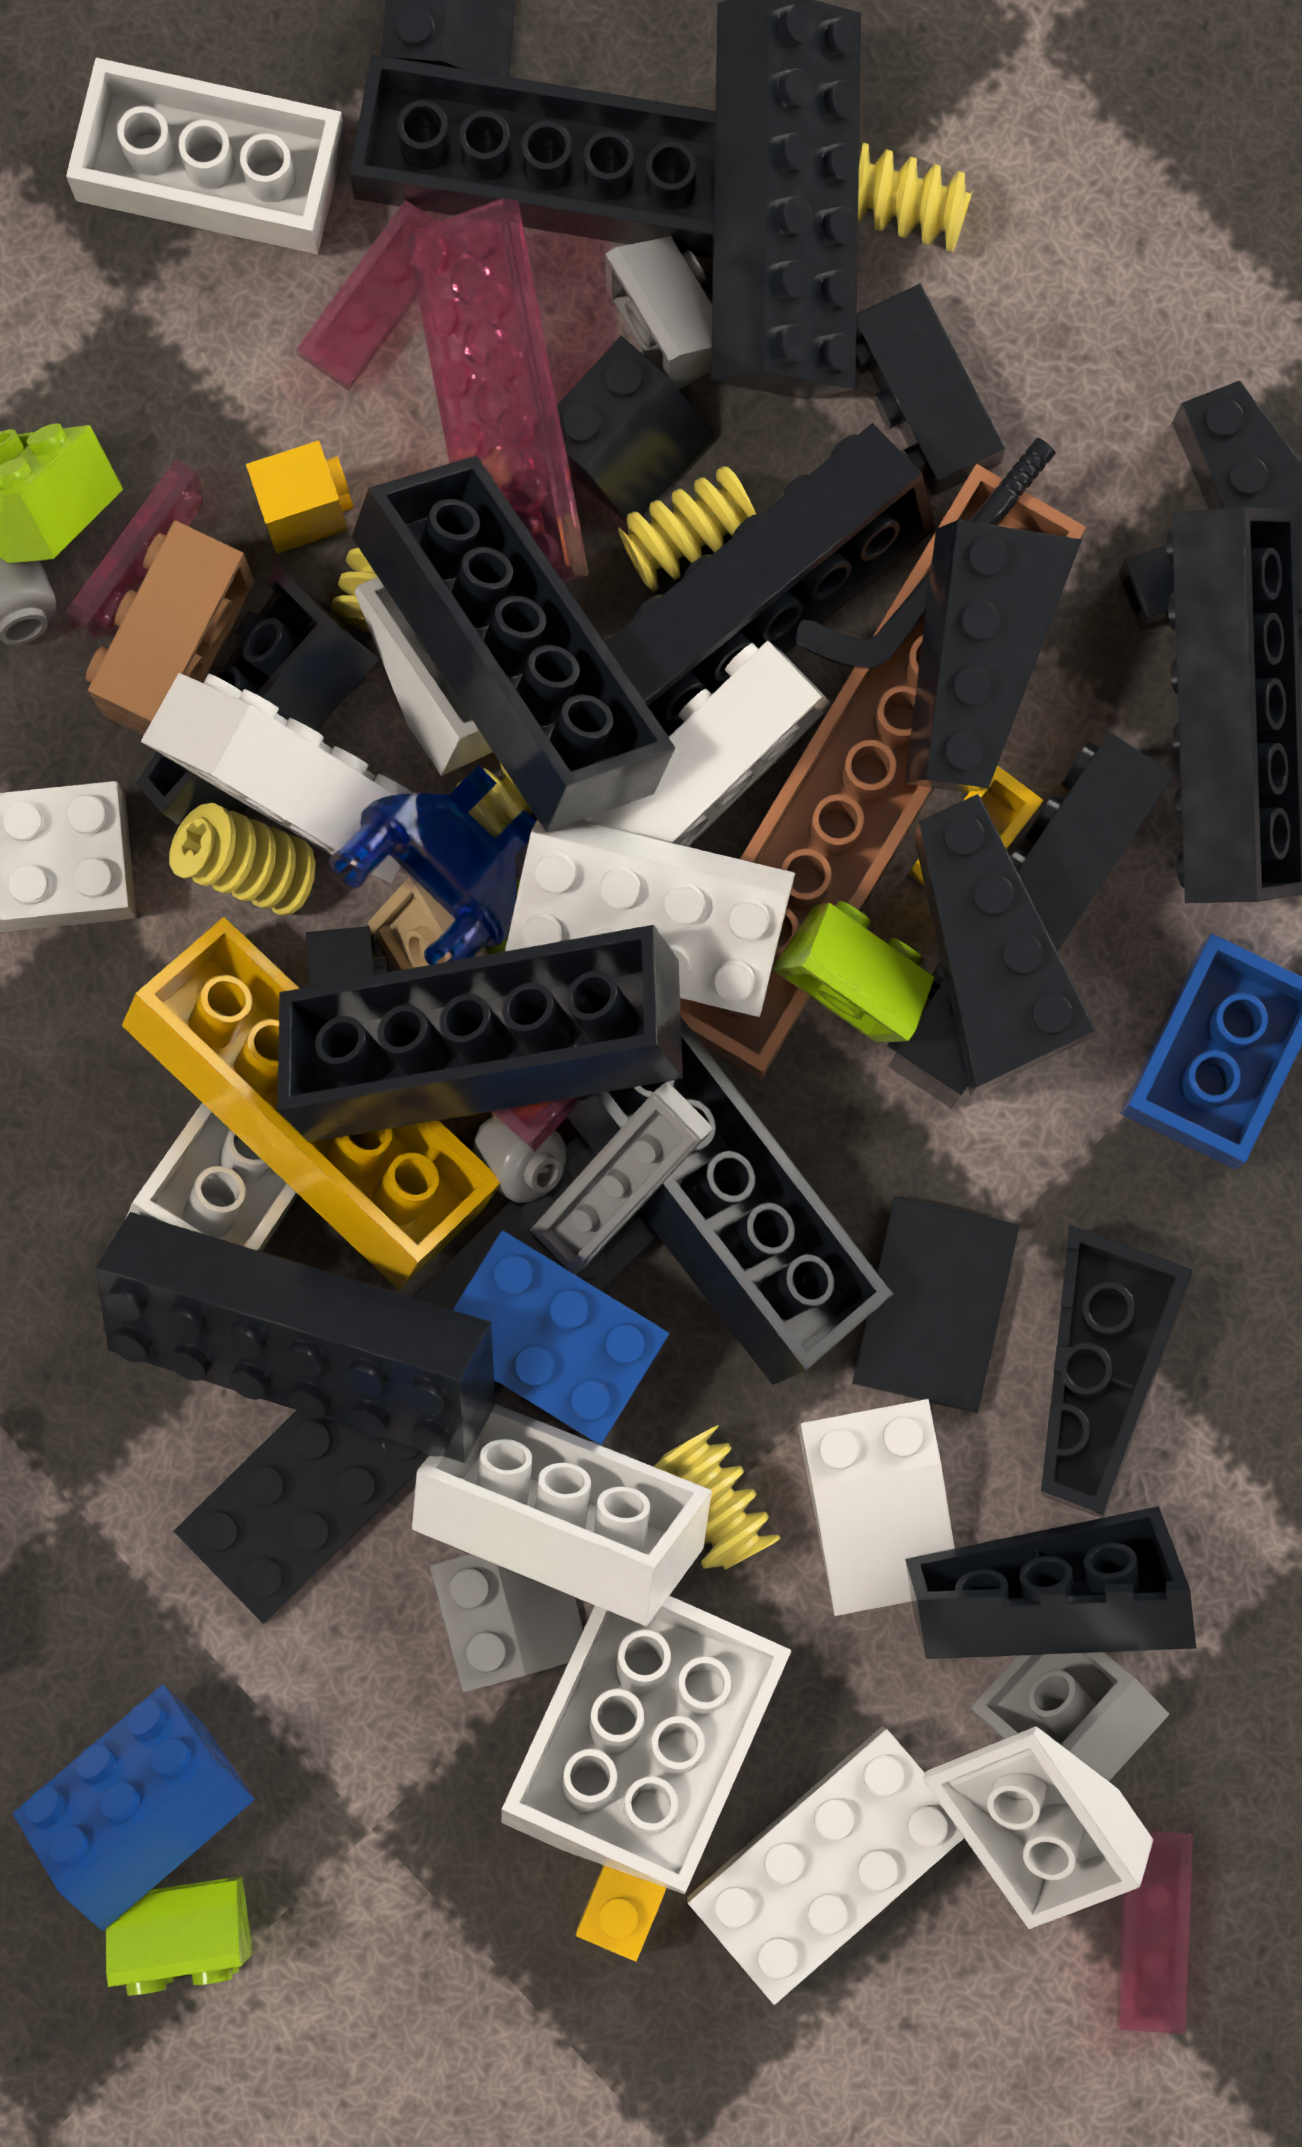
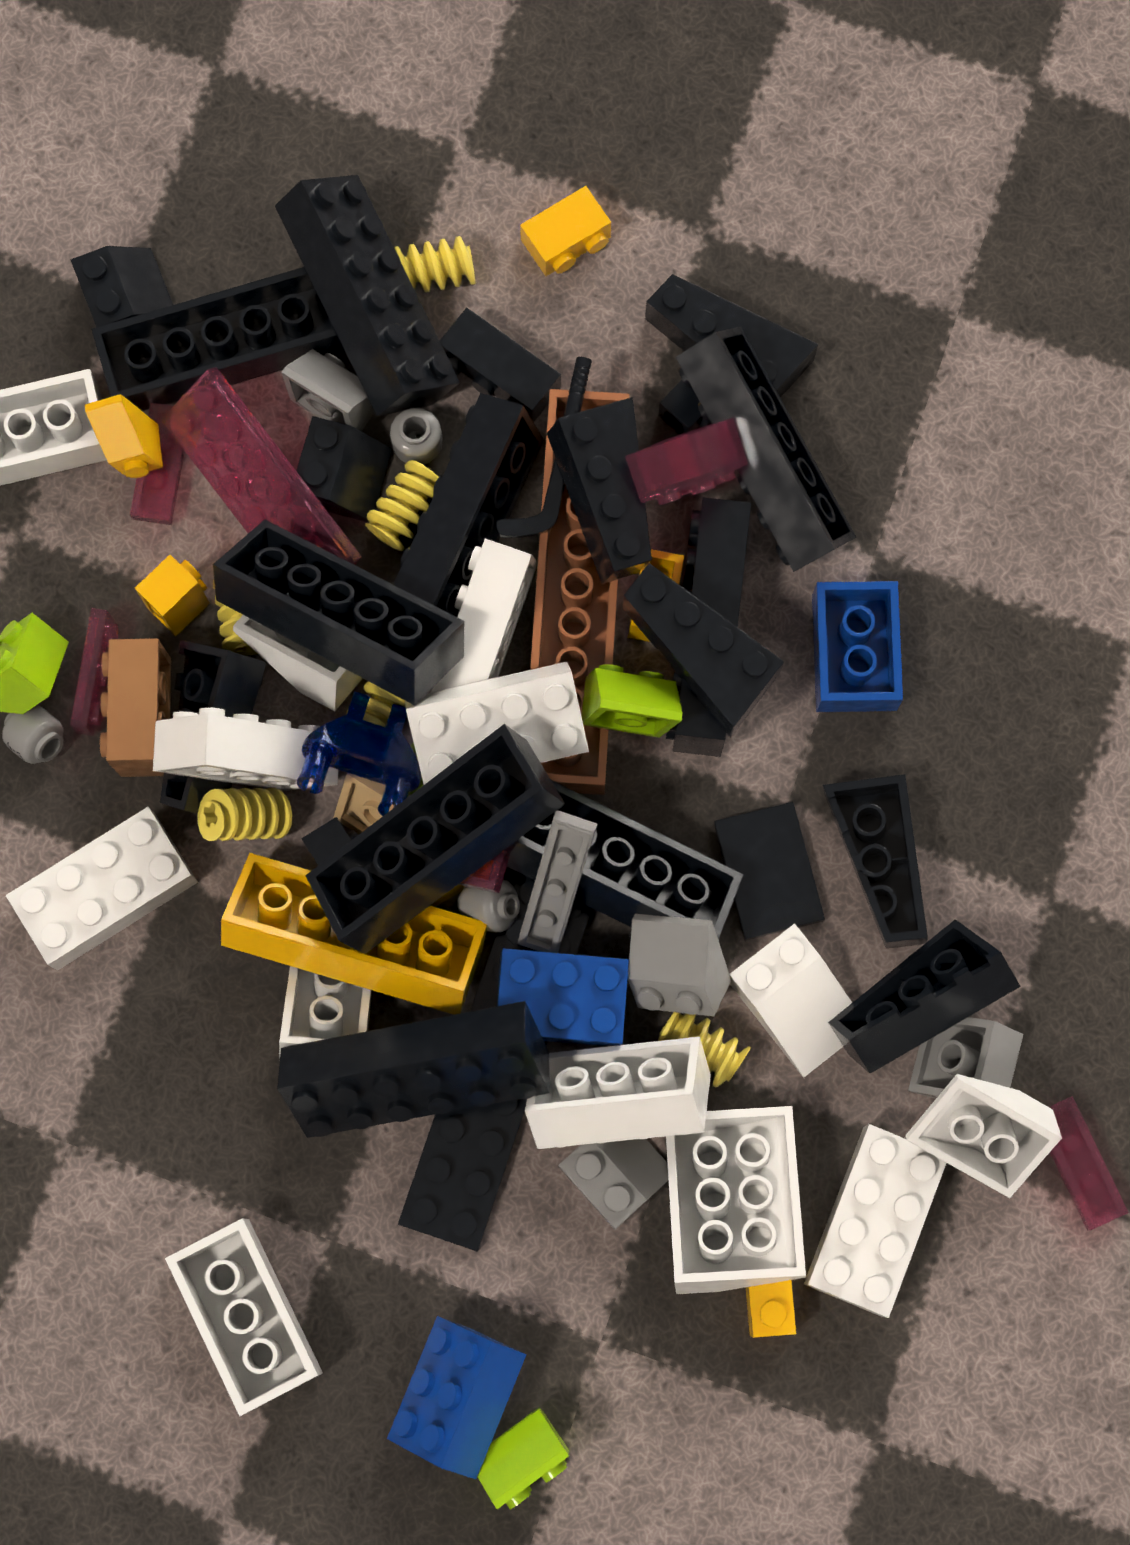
camera: 25 degrees left, 5 degrees down
(343, 236) = (126, 436): none -> yellow slope
(731, 1375) = (676, 965): none -> light grey slope
(752, 416) = (416, 436): none -> light grey head
(1110, 673) = (687, 462): none -> clear pink brick
(1122, 240) = (566, 232): none -> yellow brick

